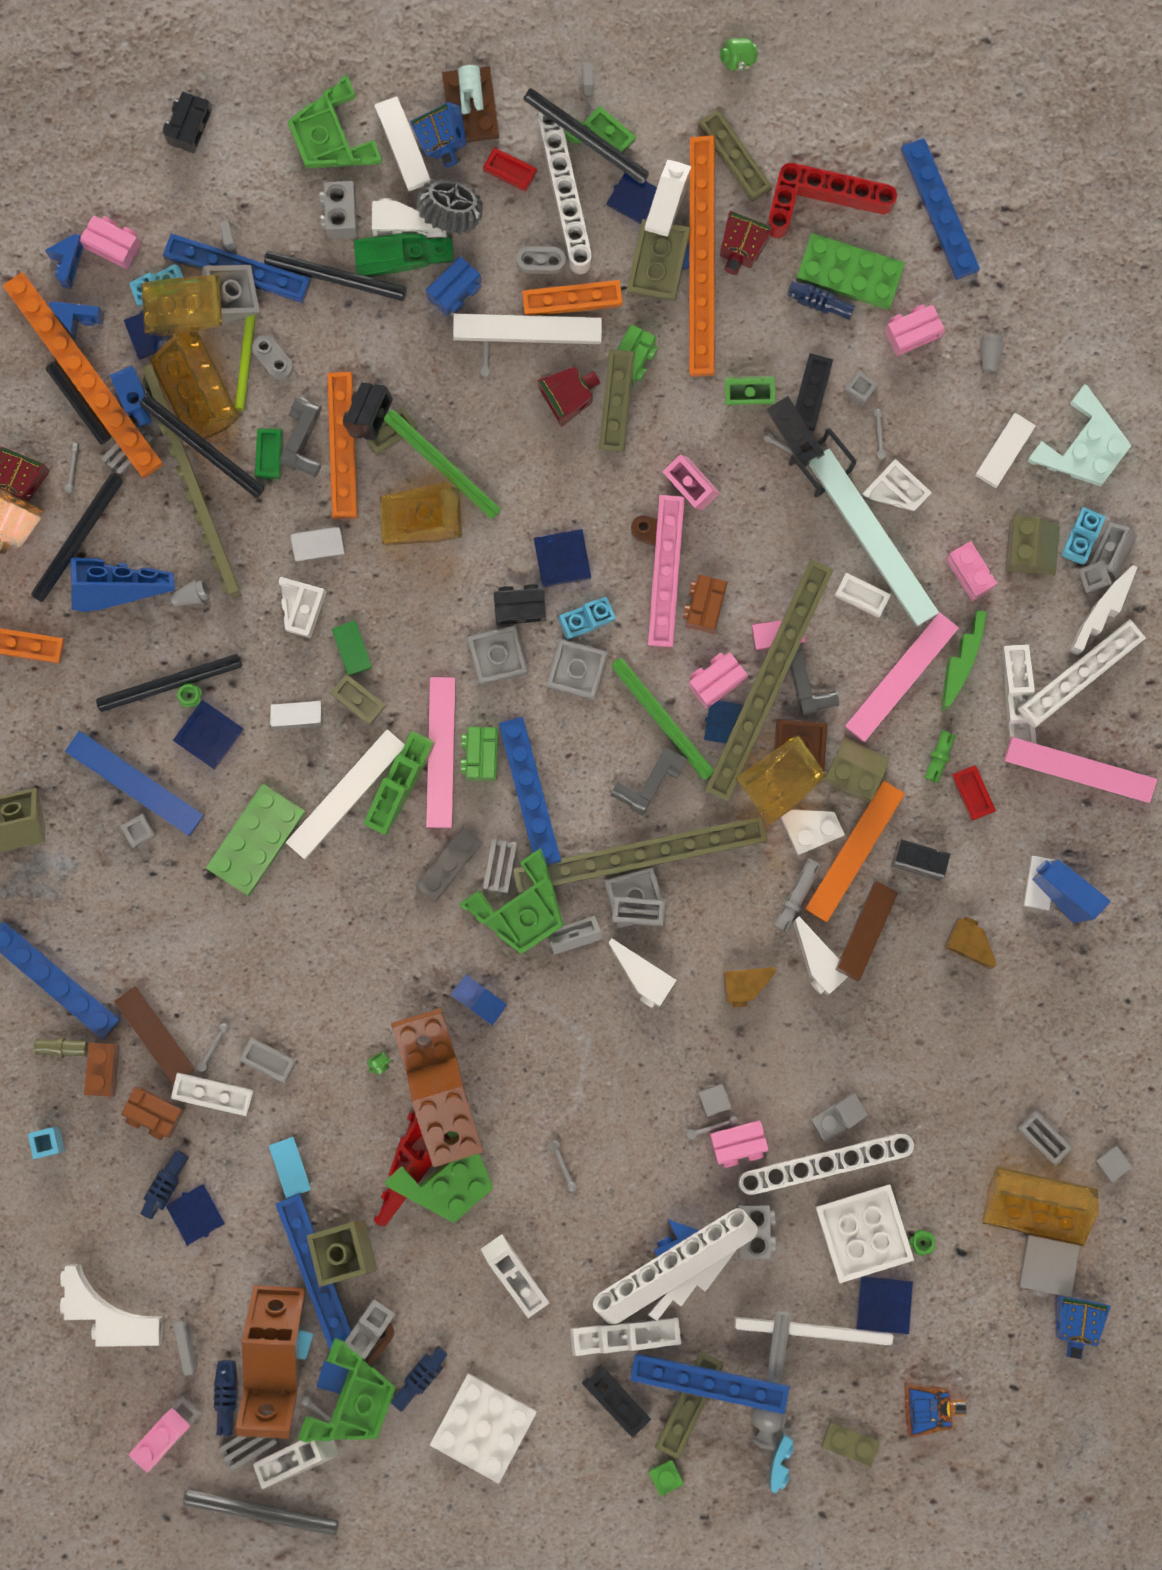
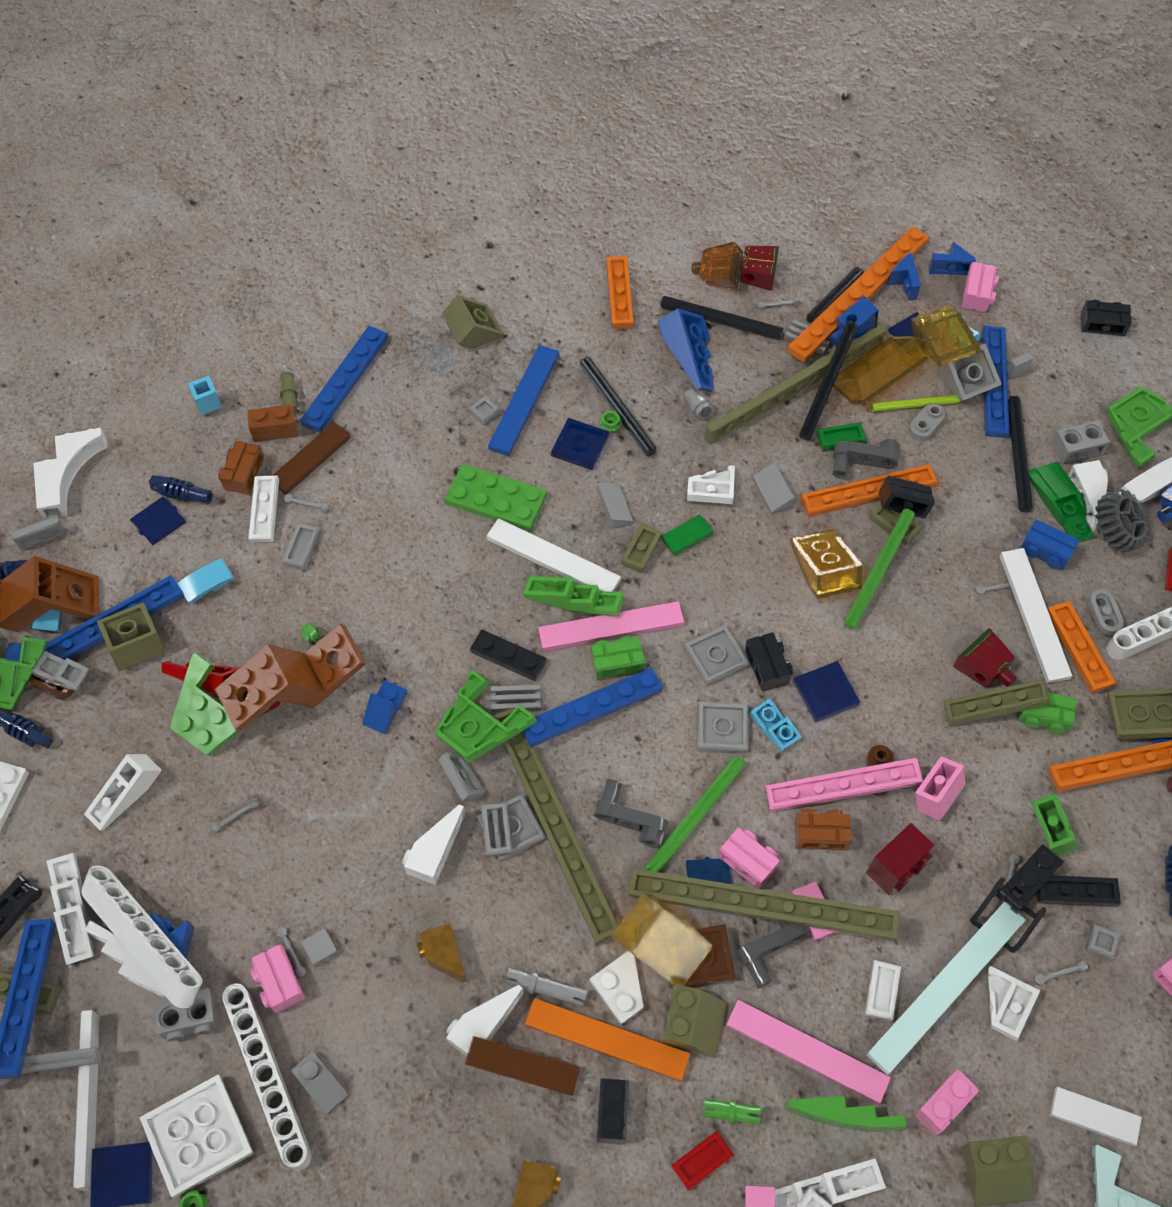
camera: 80 degrees right, 20 degrees down
(753, 541) = (900, 859): none -> dark red brick

